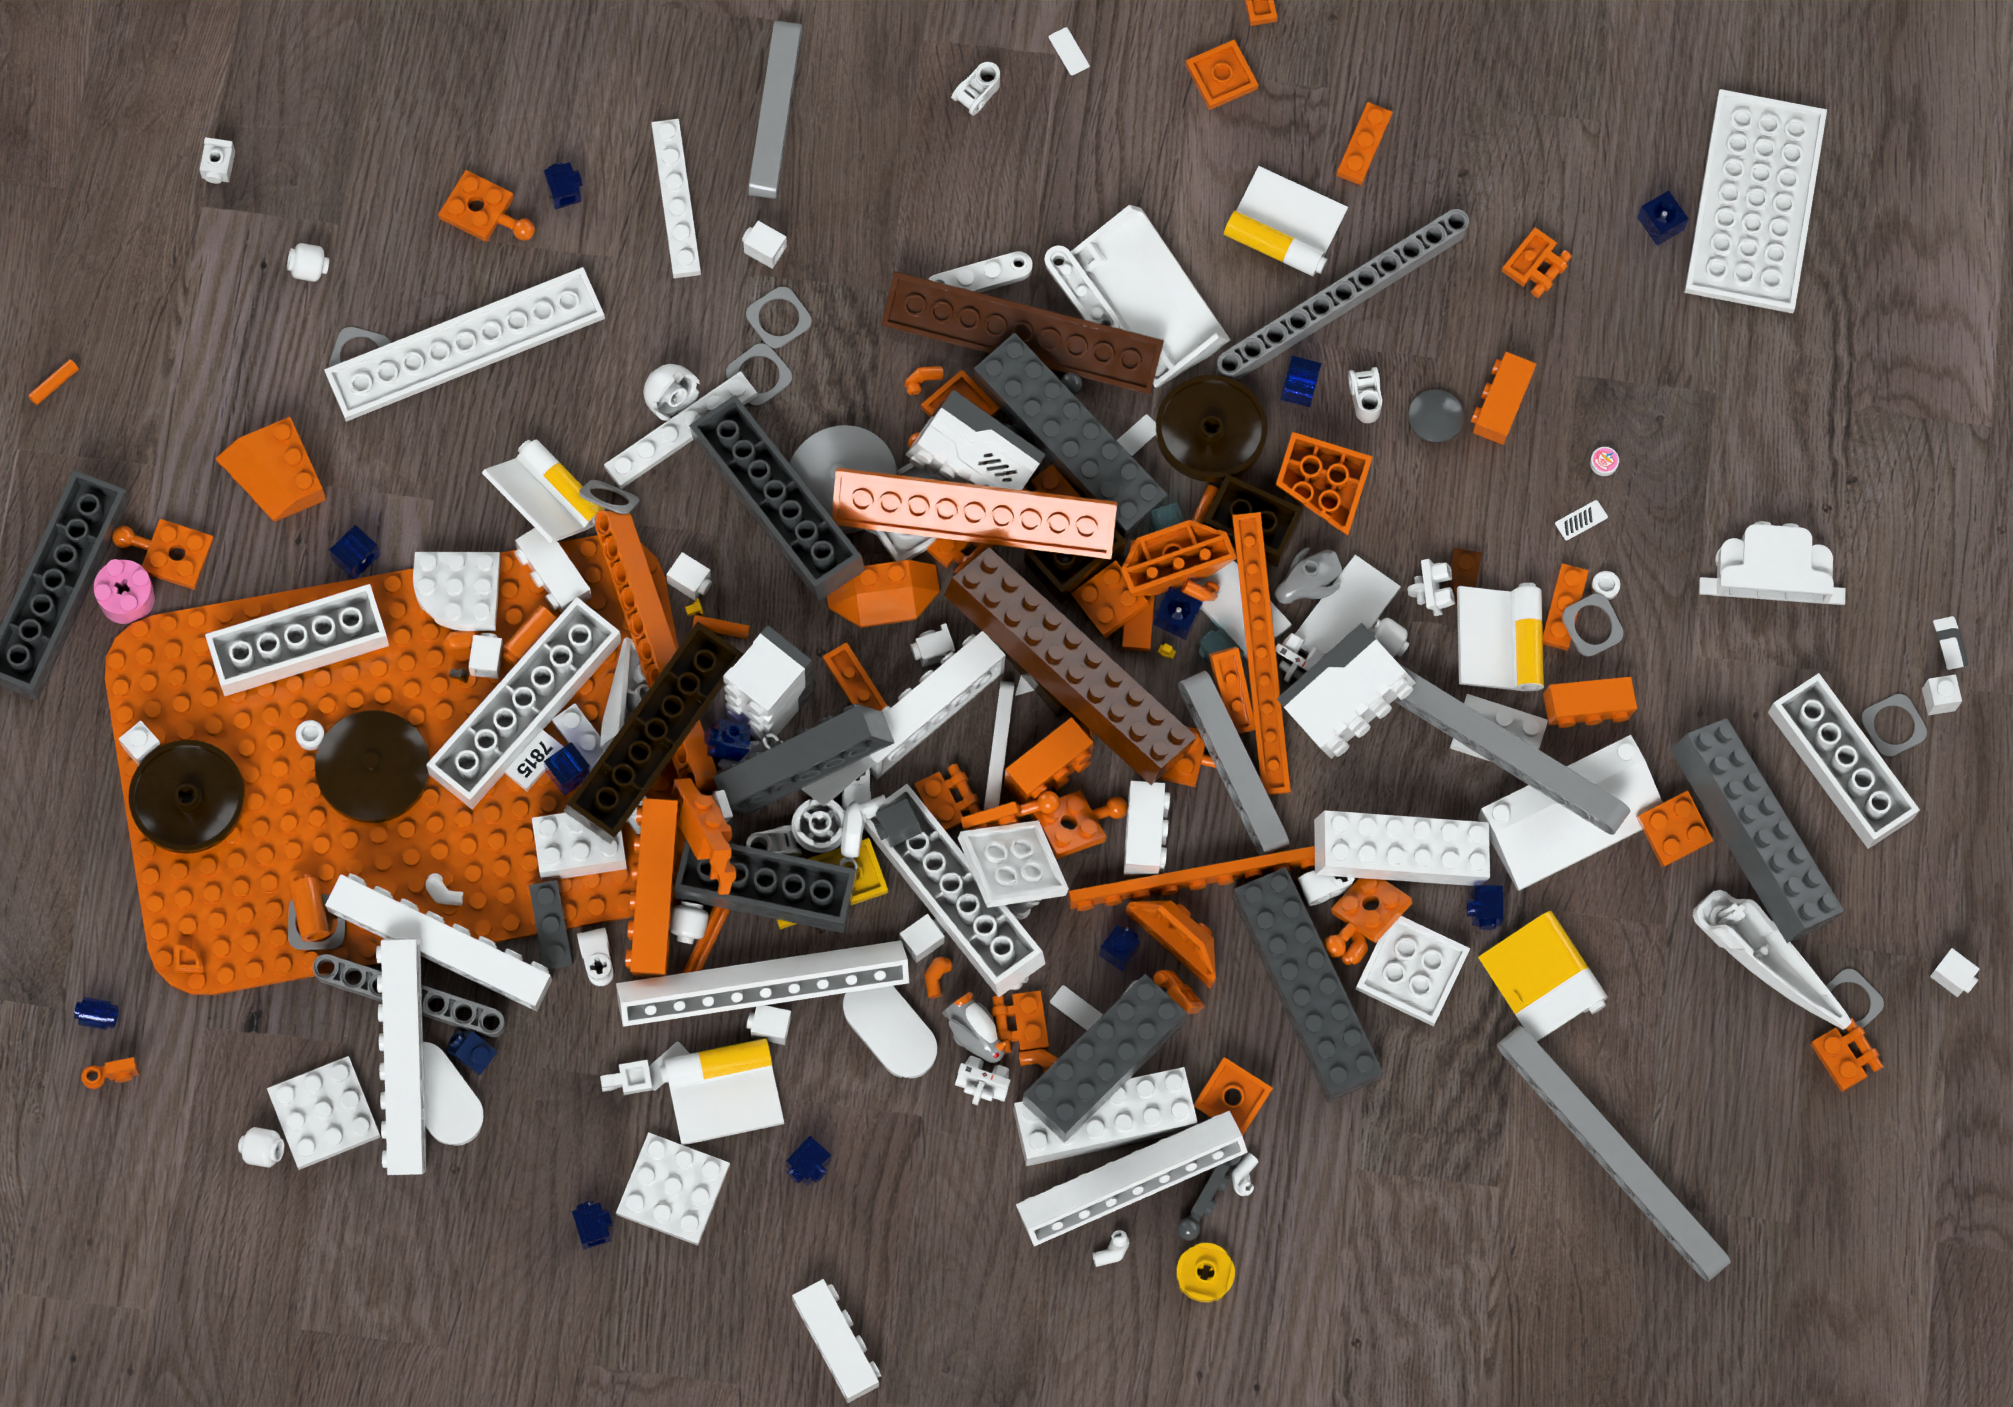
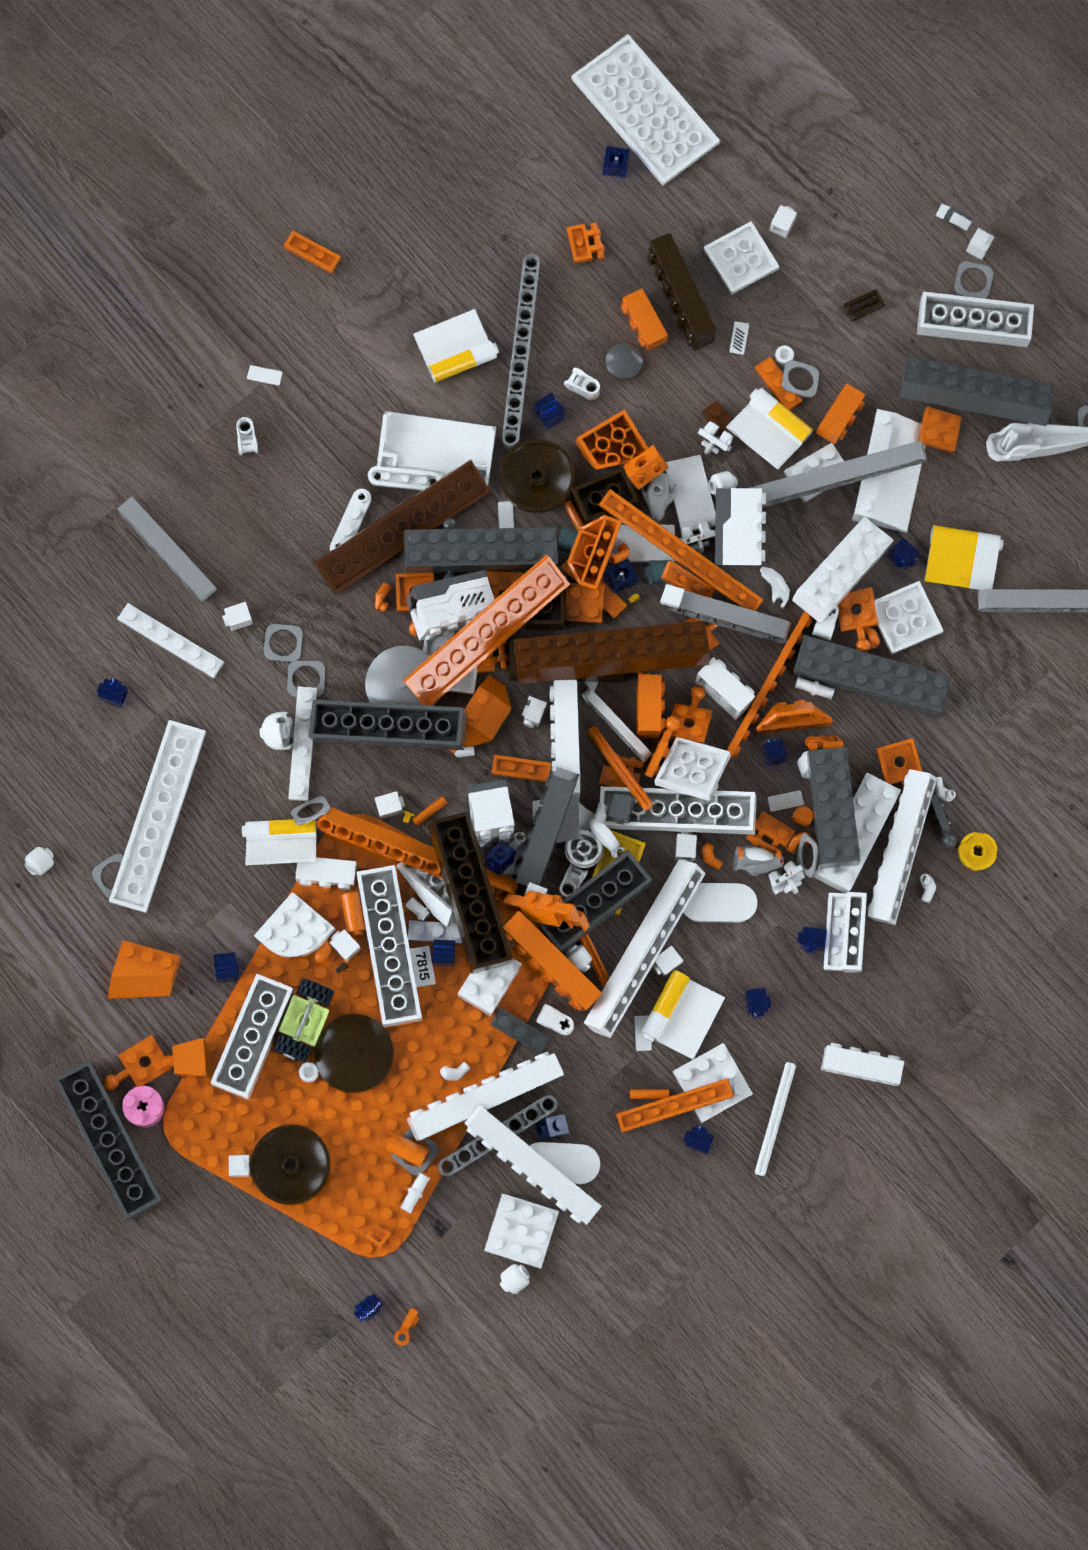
camera: 50 degrees left, 5 degrees up
(216, 594) = (188, 1059): none -> orange torso
(268, 958) = (415, 1192): none -> white pin
(361, 679) = (303, 1020): none -> plate
(482, 222) = (96, 751): orange plate -> none
(595, 702) = (418, 909): none -> white pin
(600, 1128) = (649, 1093): none -> orange piece
(609, 1165) = (675, 1105): none -> orange tile
(633, 1078) = (637, 1056): white plate -> none
(690, 1293) = (775, 1118): none -> white axle
(823, 609) = (468, 751): none -> white arm
(936, 1166) = (812, 939): none -> clear blue brick
(946, 787) = (620, 768): none -> orange axle
(976, 1195) = (845, 932): none -> white brick
(1010, 1096) = (804, 838): none -> light grey piece
(1070, 1034) = (803, 816): none -> orange brick
(1196, 681) = (672, 596): none -> white tile
(1221, 74) = (347, 310): orange plate -> none
(1237, 933) = (814, 688): none -> white pin
(1324, 796) = (779, 587): none -> white piece
(1326, 534) = (645, 467): none -> orange brick
(1364, 143) = (446, 272): orange plate -> none
(1570, 409) = (681, 291): none -> dark brown brick
(1604, 461) = (718, 300): tile -> none
(1676, 445) = (741, 258): none -> white plate
(1746, 636) = (853, 317): none -> dark brown tile
(1764, 455) = (783, 221): none -> white brick
(1774, 566) = (845, 266): white brick -> none

